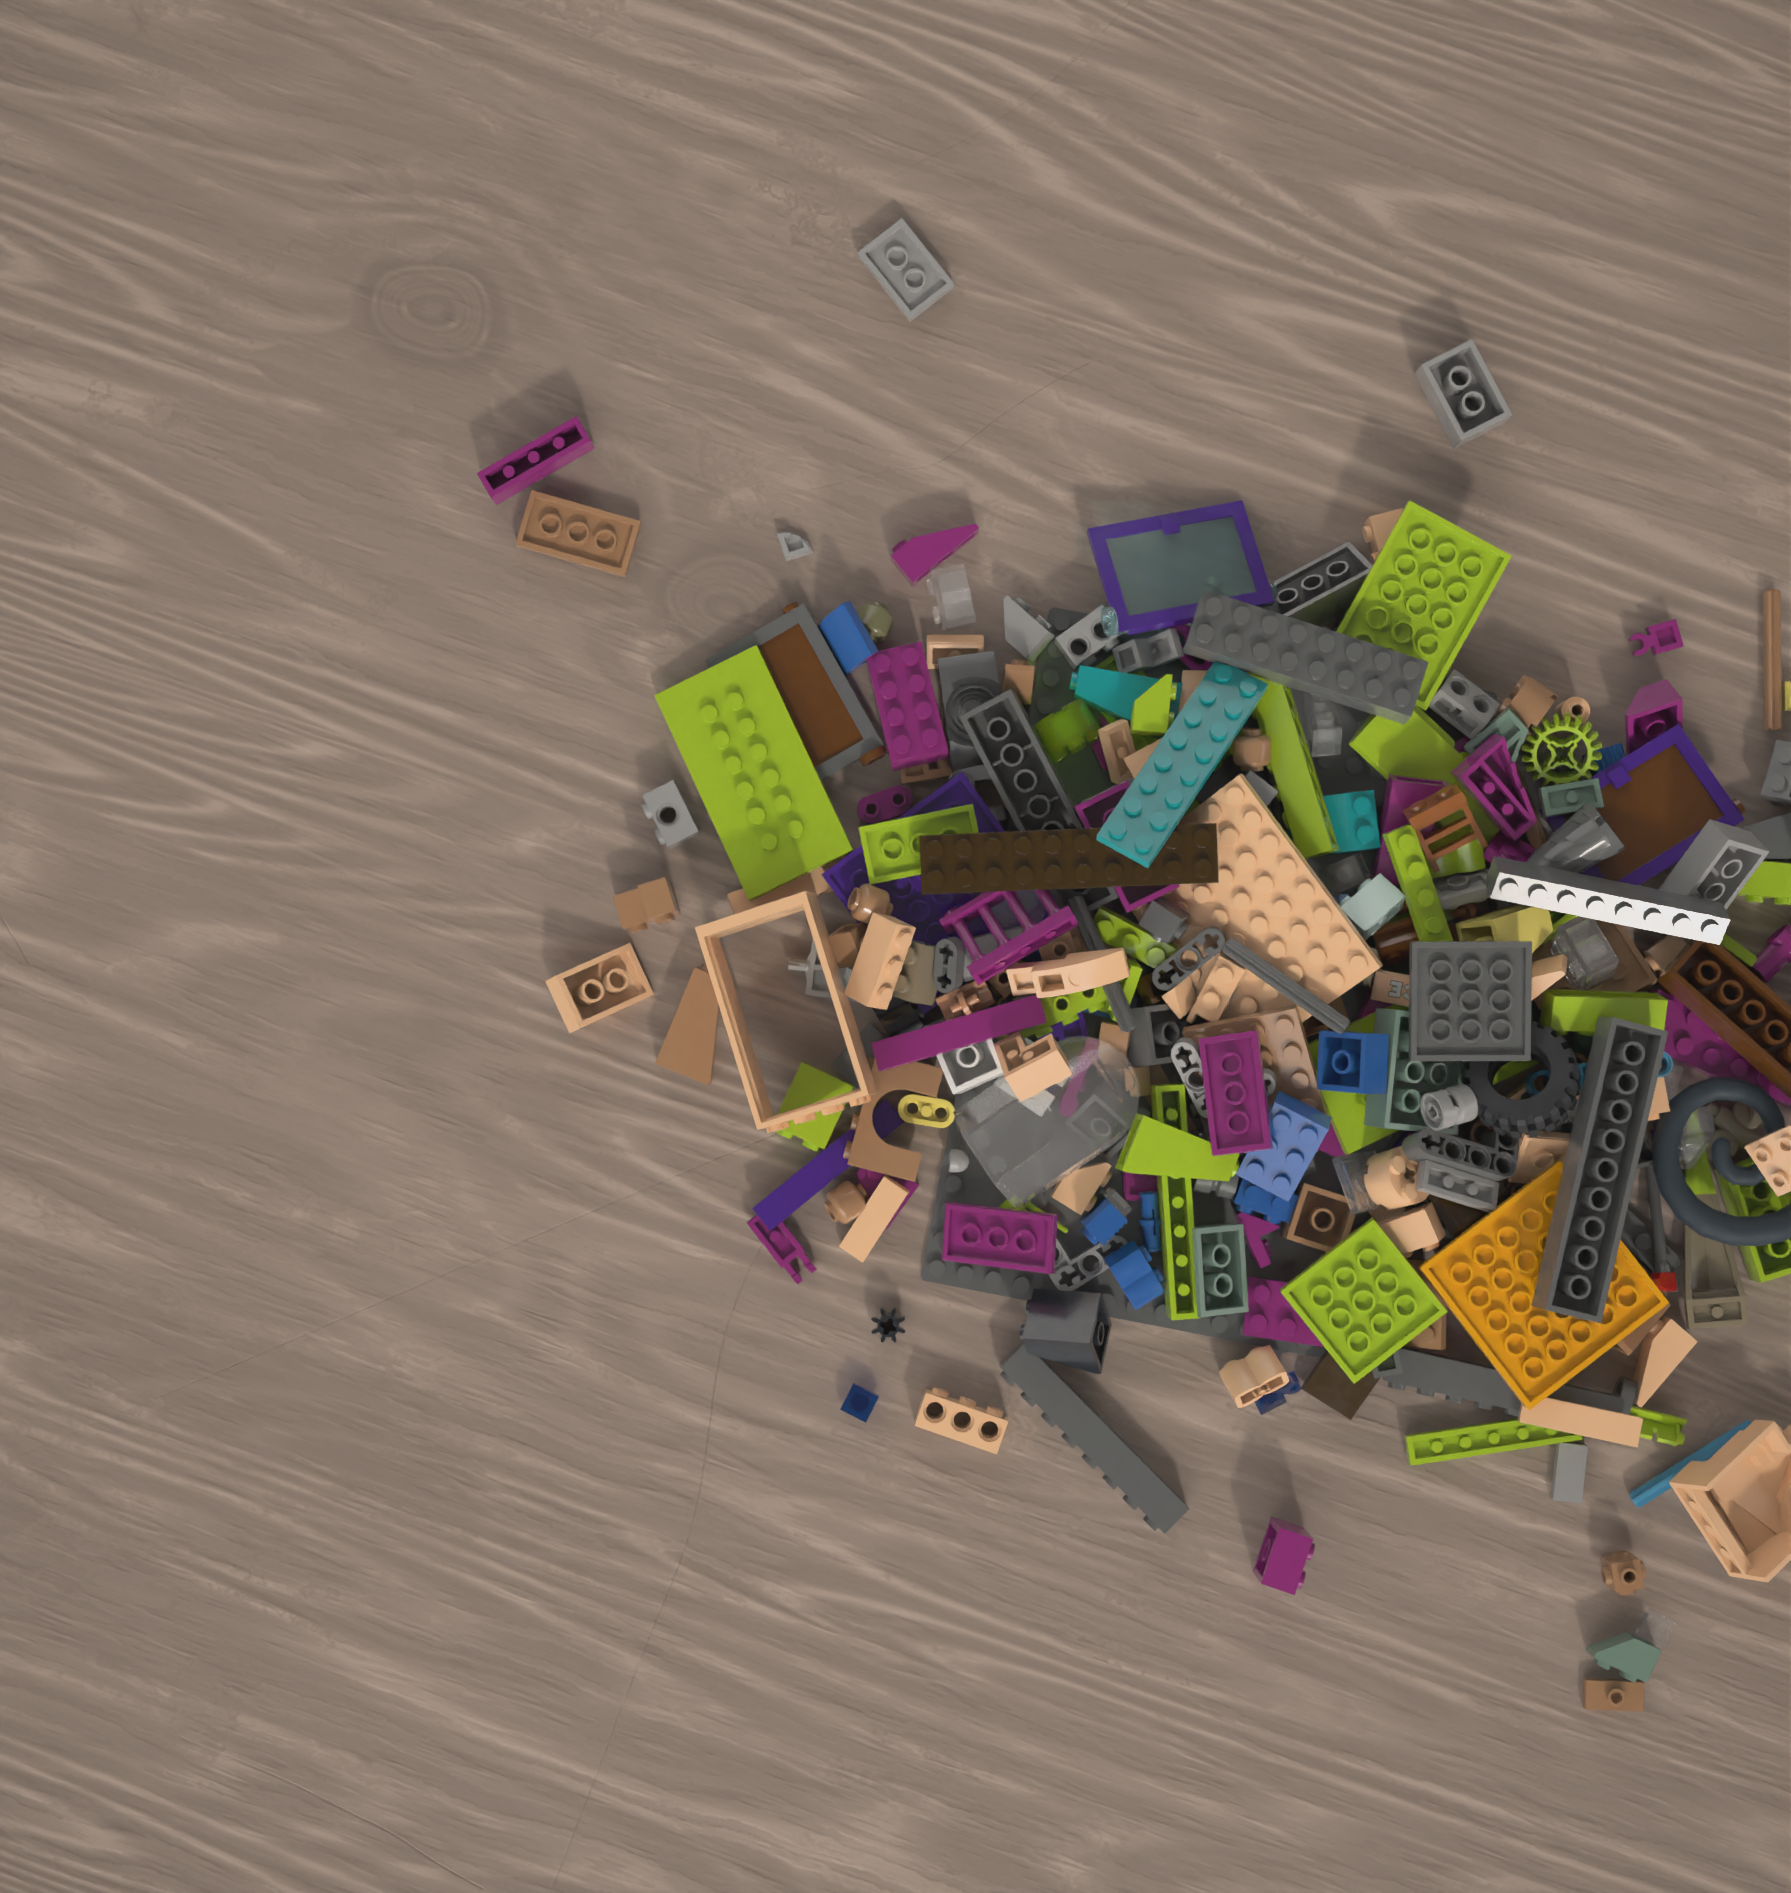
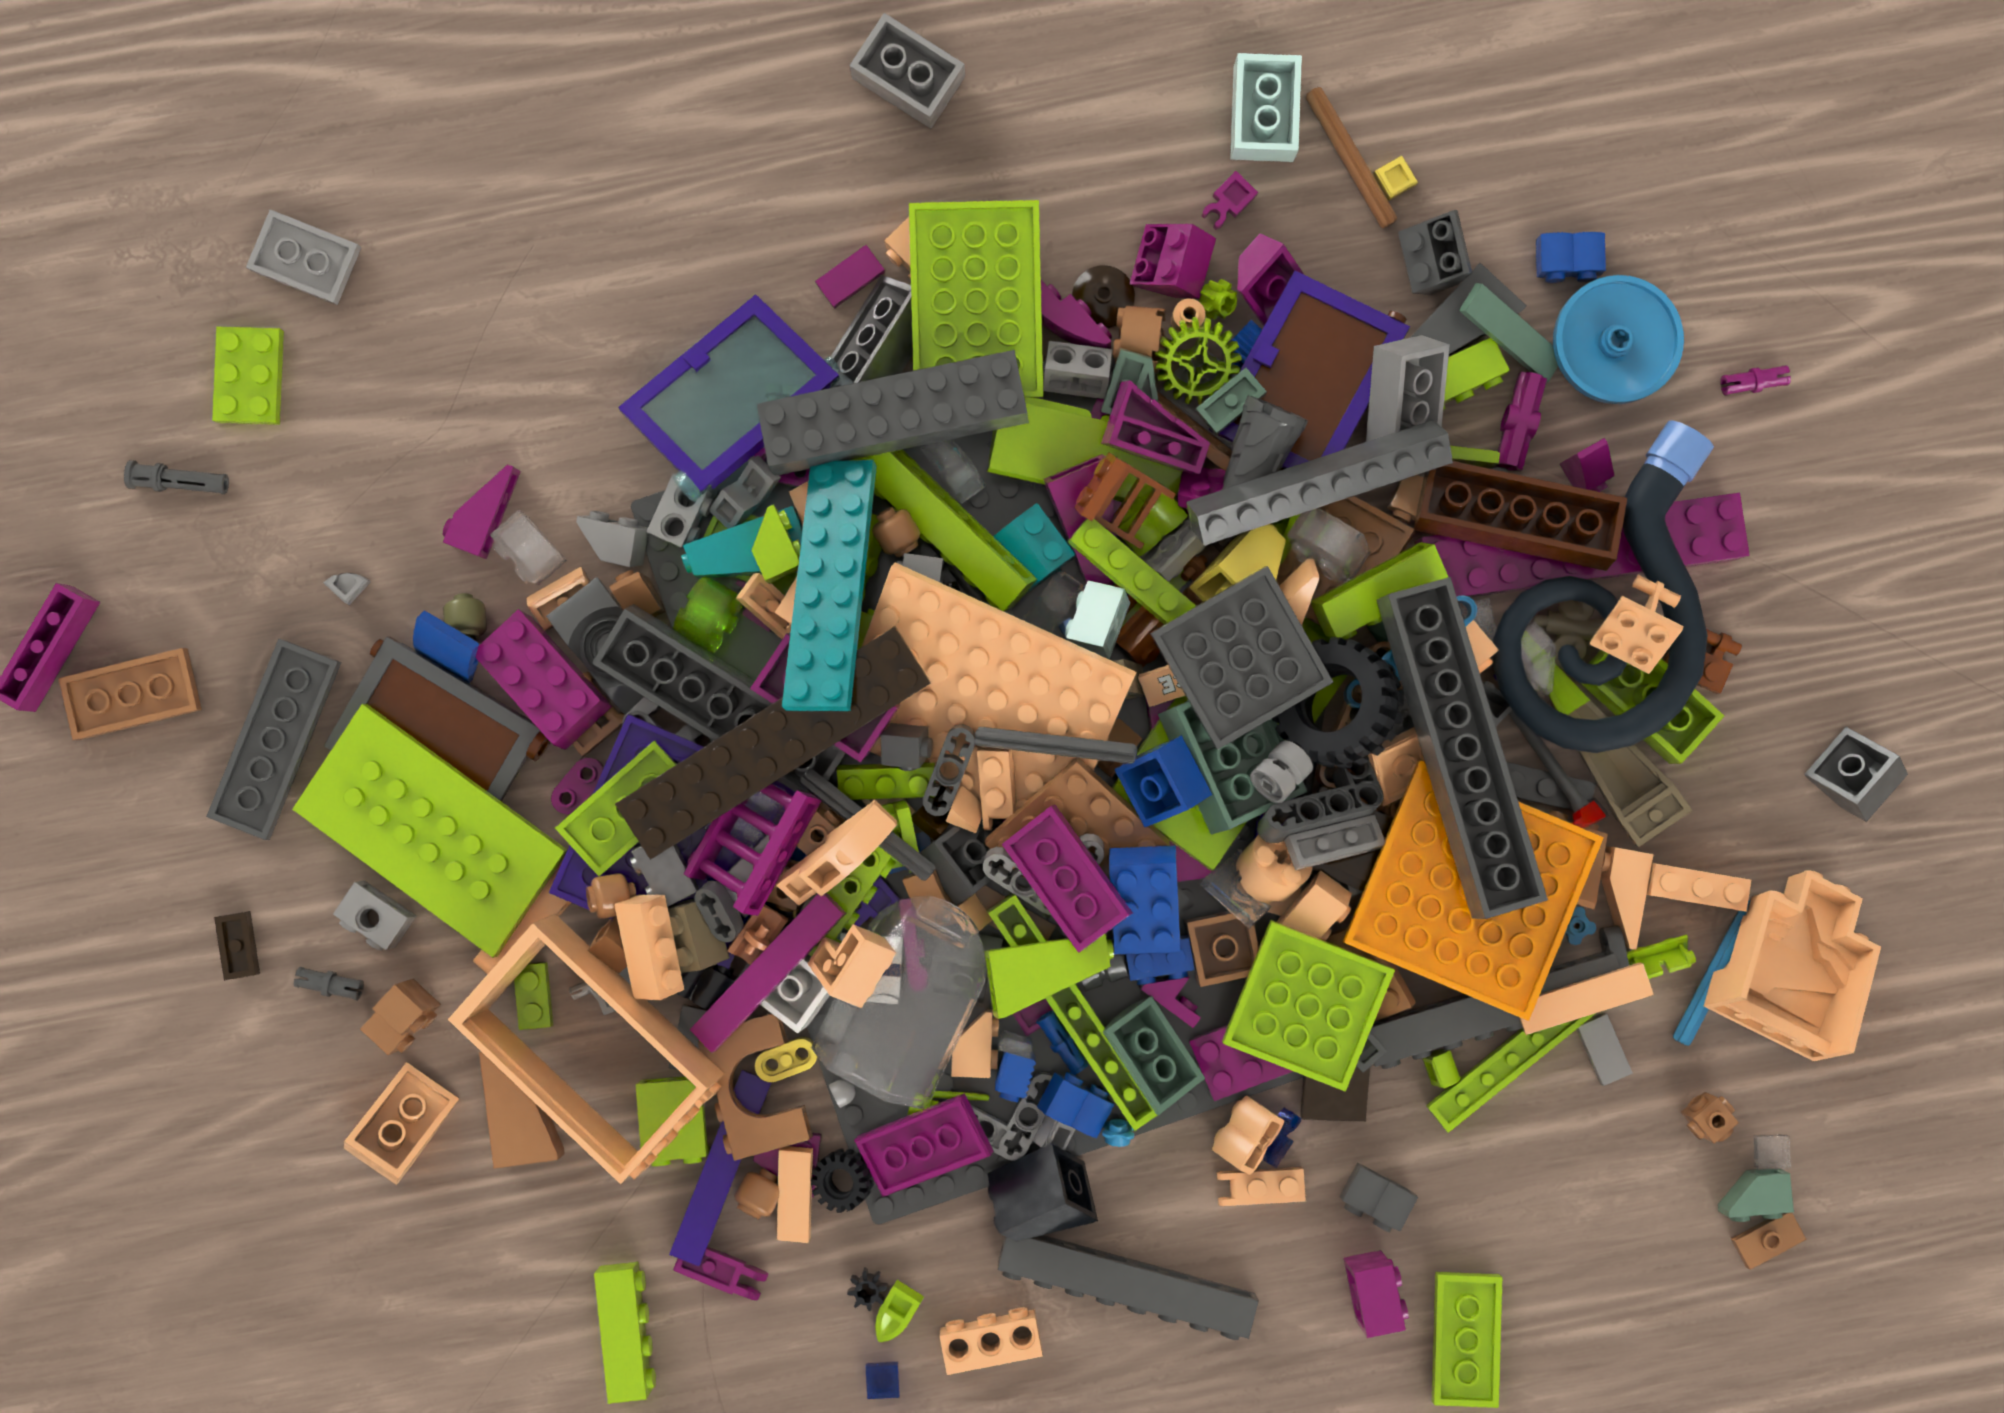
camera: 30 degrees left, 0 degrees up
(550, 776) = (237, 945): none -> dark brown plate
(604, 847) = (328, 983): none -> dark grey pin
(670, 632) = (273, 739): none -> dark grey plate
(680, 1249) = (624, 1332): none -> lime brick
(697, 379) = (161, 478): none -> dark grey pin
(756, 949) = (533, 997): none -> lime plate
(809, 337) = (248, 375): none -> lime plate
(900, 1355) = (896, 1311): none -> lime plate
(901, 1234) = (826, 1187): none -> black tyre
(921, 910) = (664, 874): none -> flat silver brick
(1106, 1285) = (1053, 1133): none -> light grey brick
(1154, 1315) = (1117, 1132): none -> dark azure plate
(1241, 1424) = (1264, 1186): none -> light nougat hinge
(1323, 528) = (850, 276): none -> magenta tile
(1327, 1485) = (1378, 1197): none -> dark grey brick
(1332, 1635) = (1467, 1339): none -> lime plate
(1433, 1412) = (1441, 1068): none -> lime brick
(1480, 664) = (1071, 319): none -> magenta slope
(1499, 657) = (1108, 278): none -> dark brown dish
(1586, 660) = (1173, 260): none -> magenta slope
(1604, 711) = (1218, 299): none -> lime gear
(1610, 1368) = (1585, 926): none -> dark azure plate
(1717, 1388) = (1699, 887): none -> light nougat brick
(1728, 583) = (1266, 107): none -> light aqua brick

